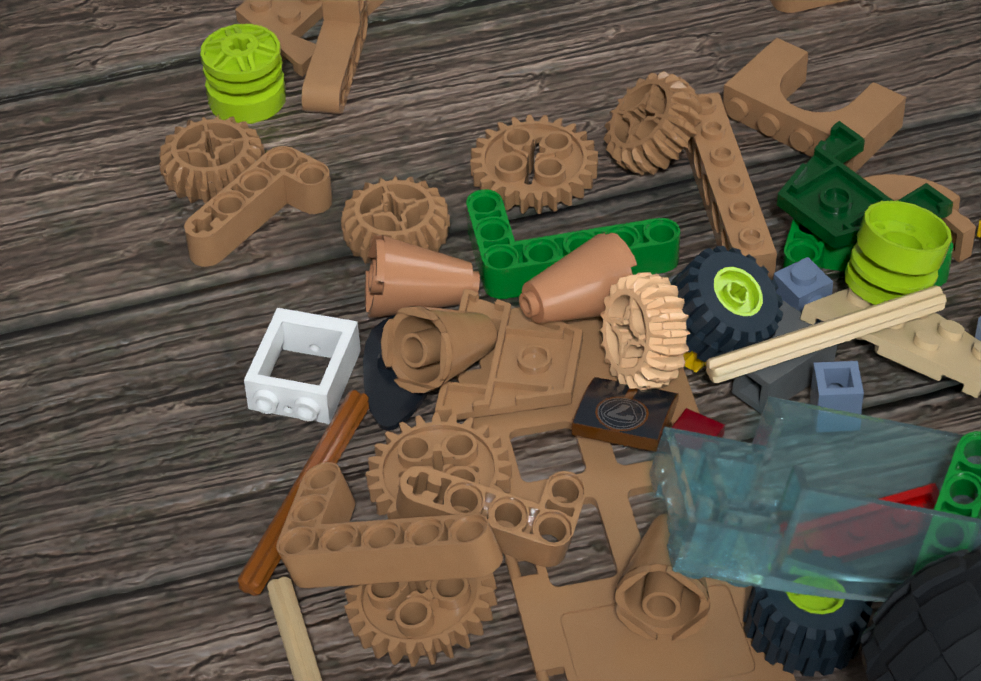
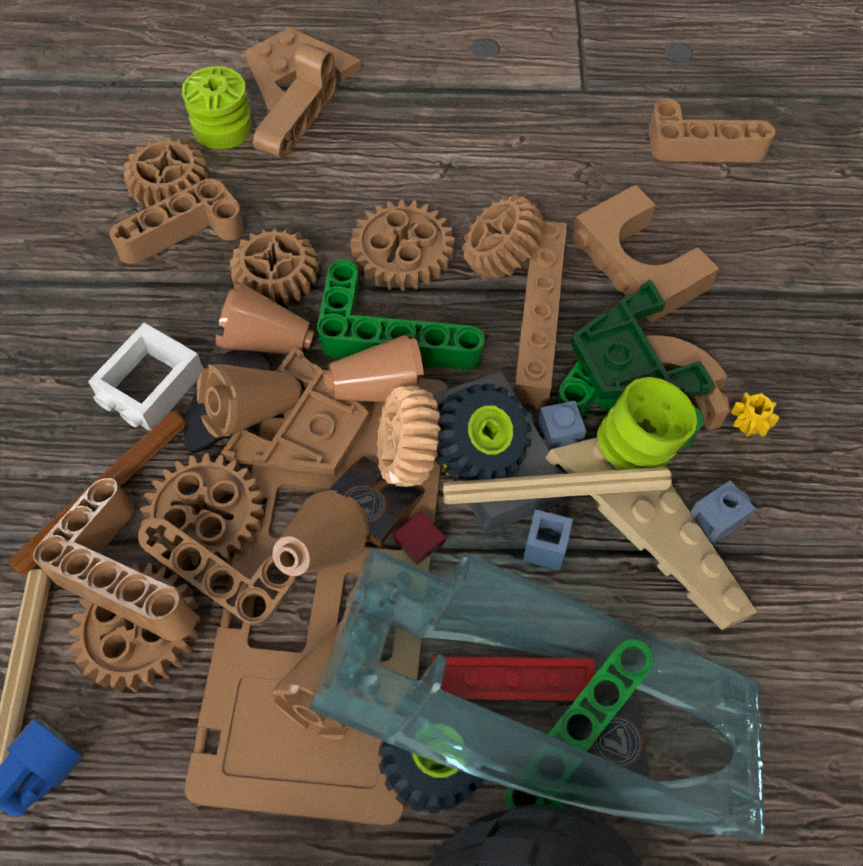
camera: 15 degrees right, 15 degrees up
(613, 433) = (322, 535): none -> medium nougat cone

